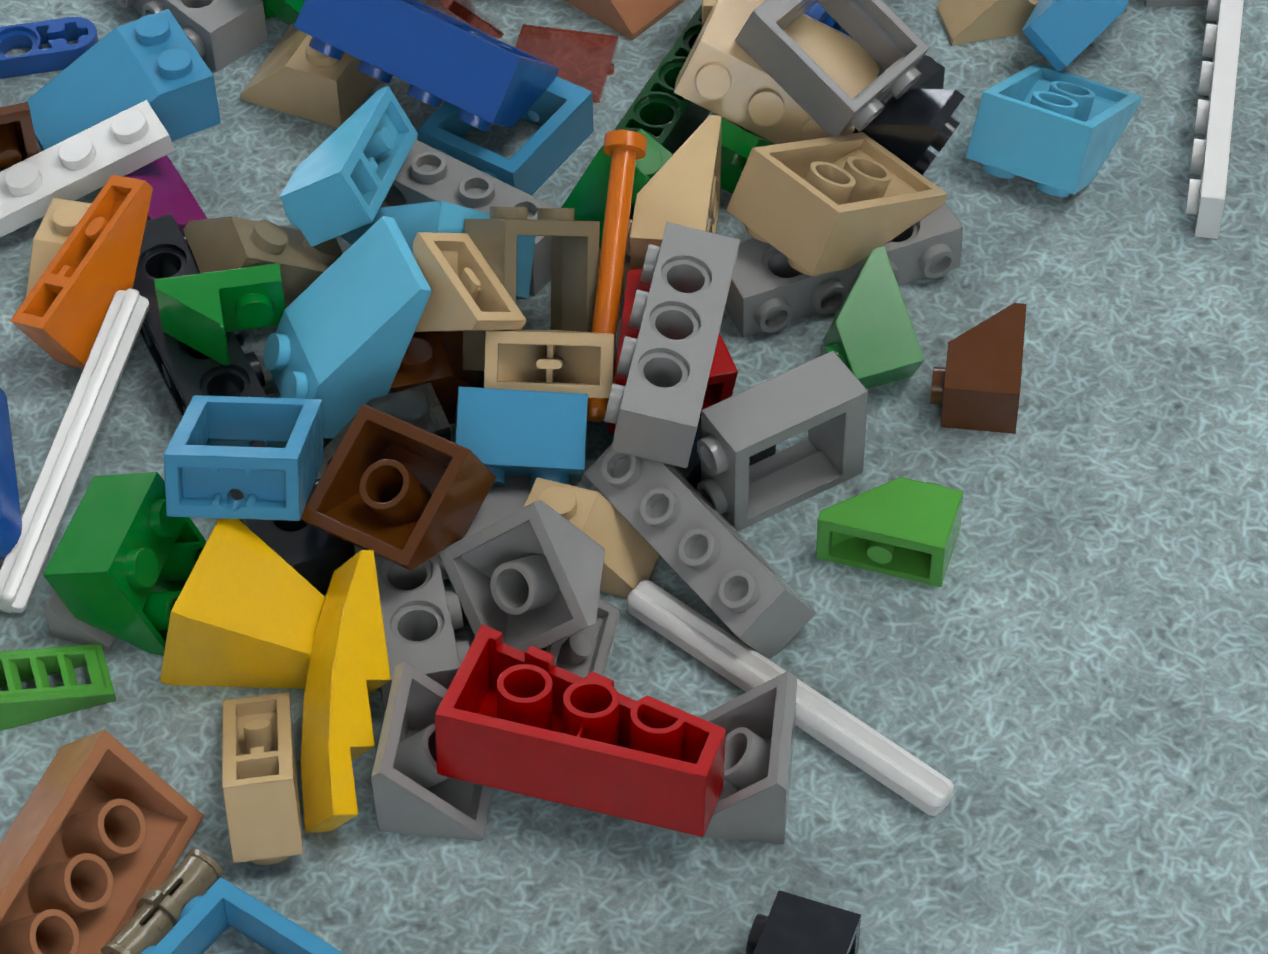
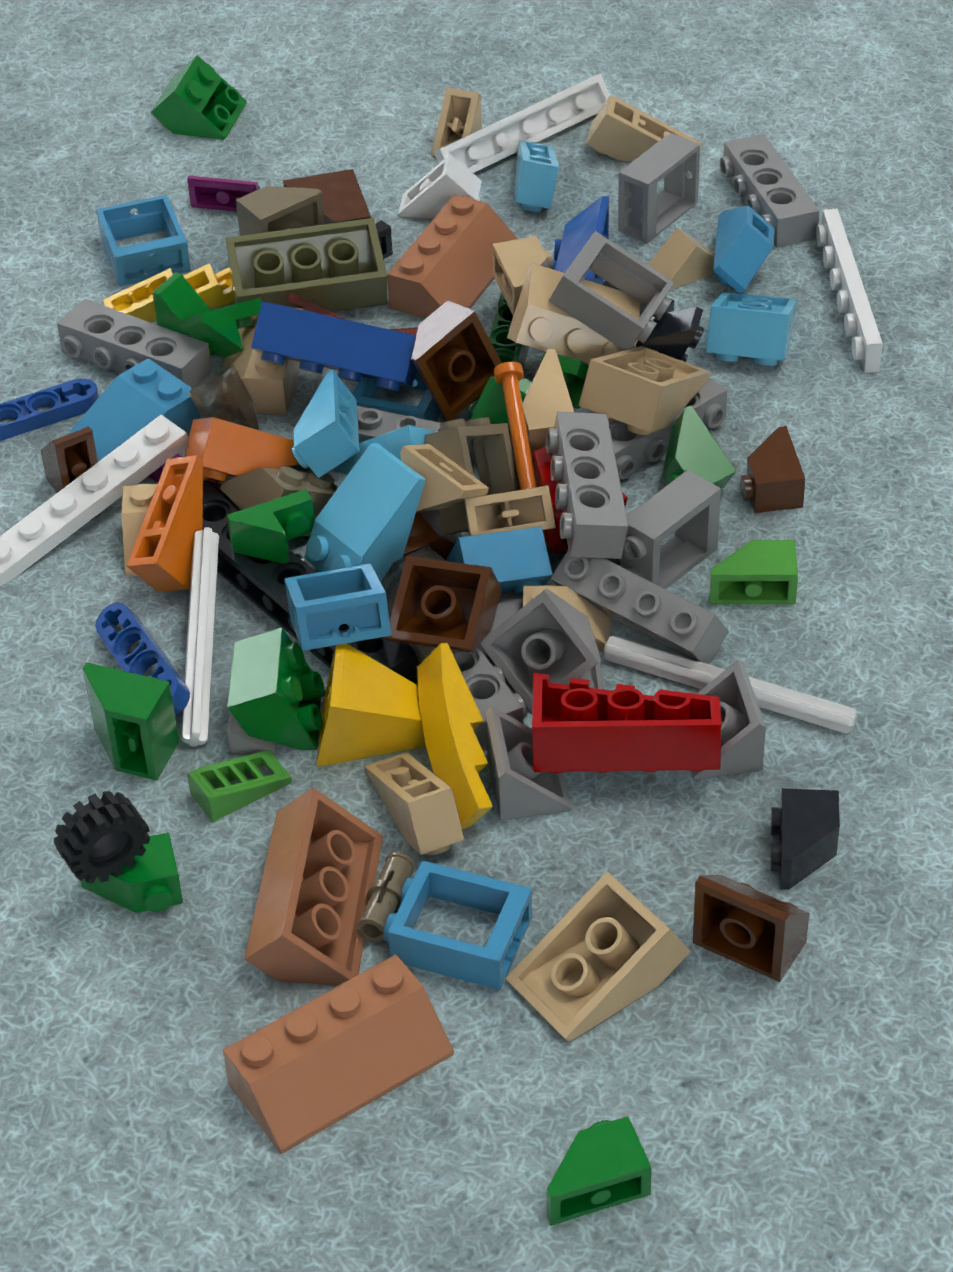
camera: 15 degrees left, 5 degrees down
(219, 178) = (236, 449): none -> orange slope
(246, 112) = (225, 398): none -> clear smoke slope
(567, 99) = (454, 357): none -> reddish brown slope

